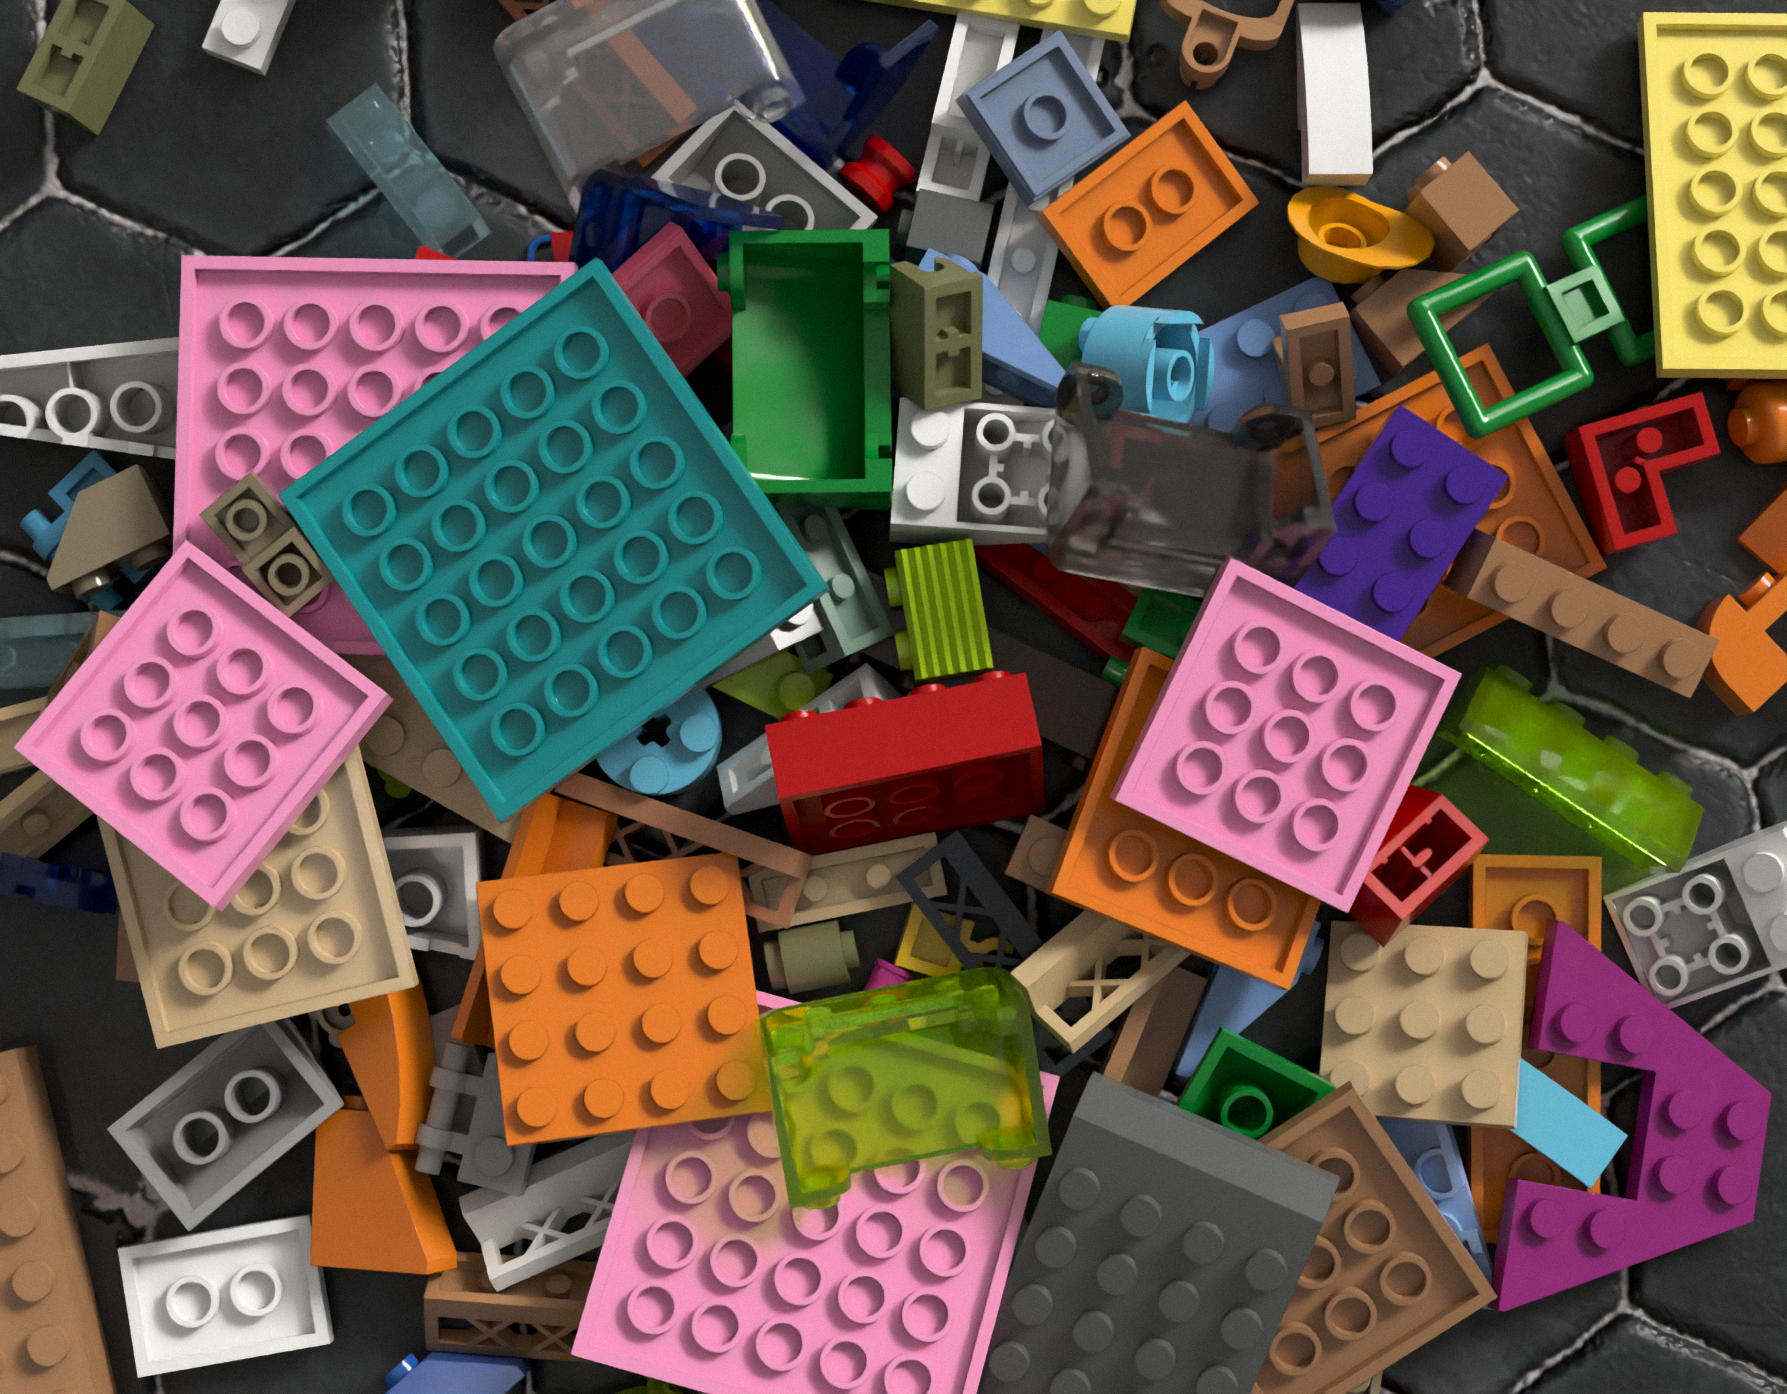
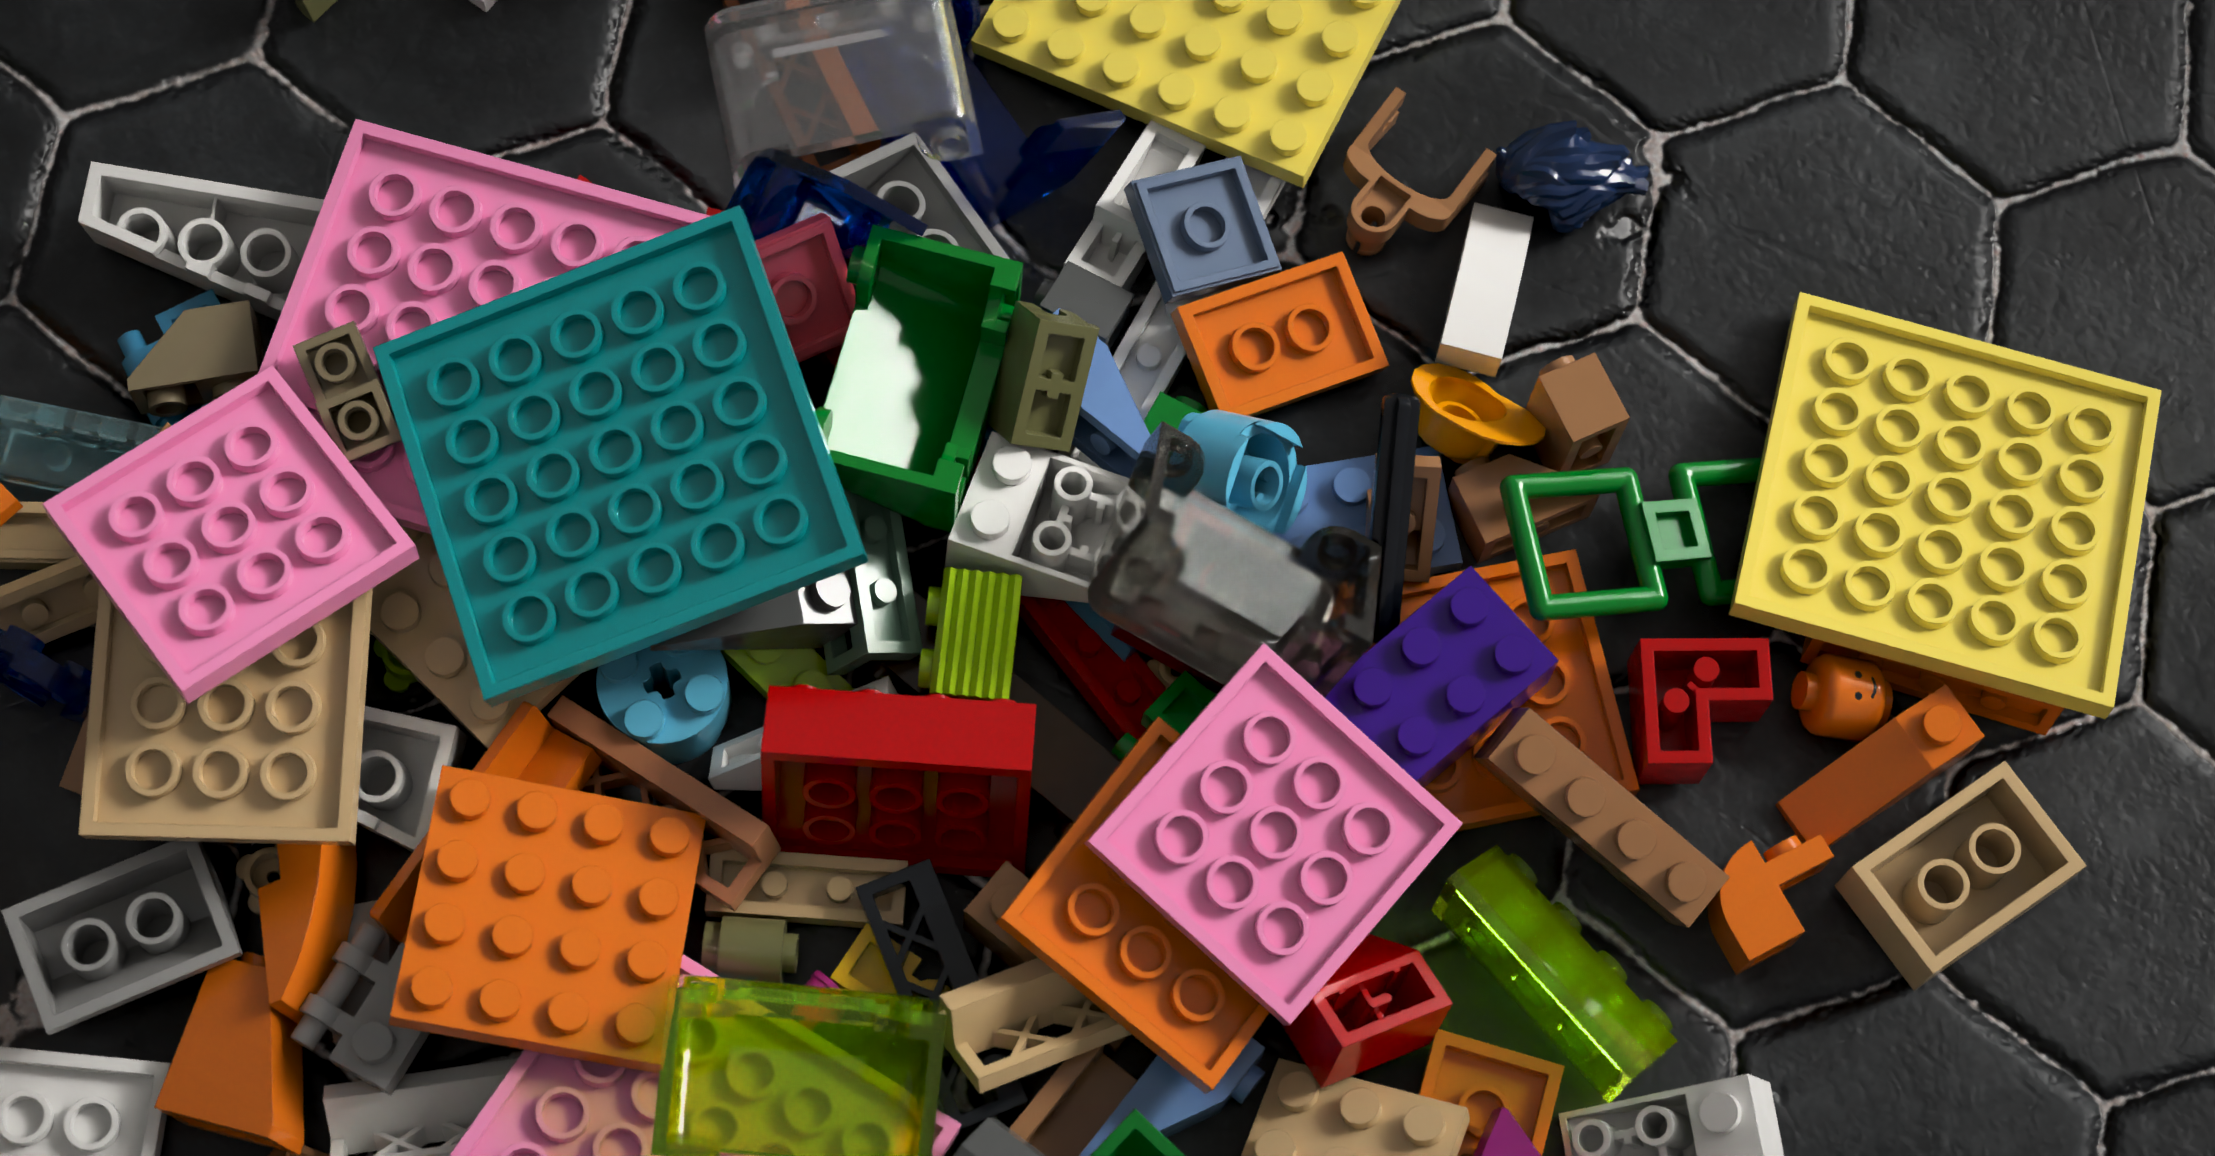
camera: 10 degrees right, 15 degrees down
(408, 174) = (590, 121): clear light blue slope -> none
(877, 174) = (1034, 242): red wheel -> none
(1310, 359) = (1393, 502): none -> black axle

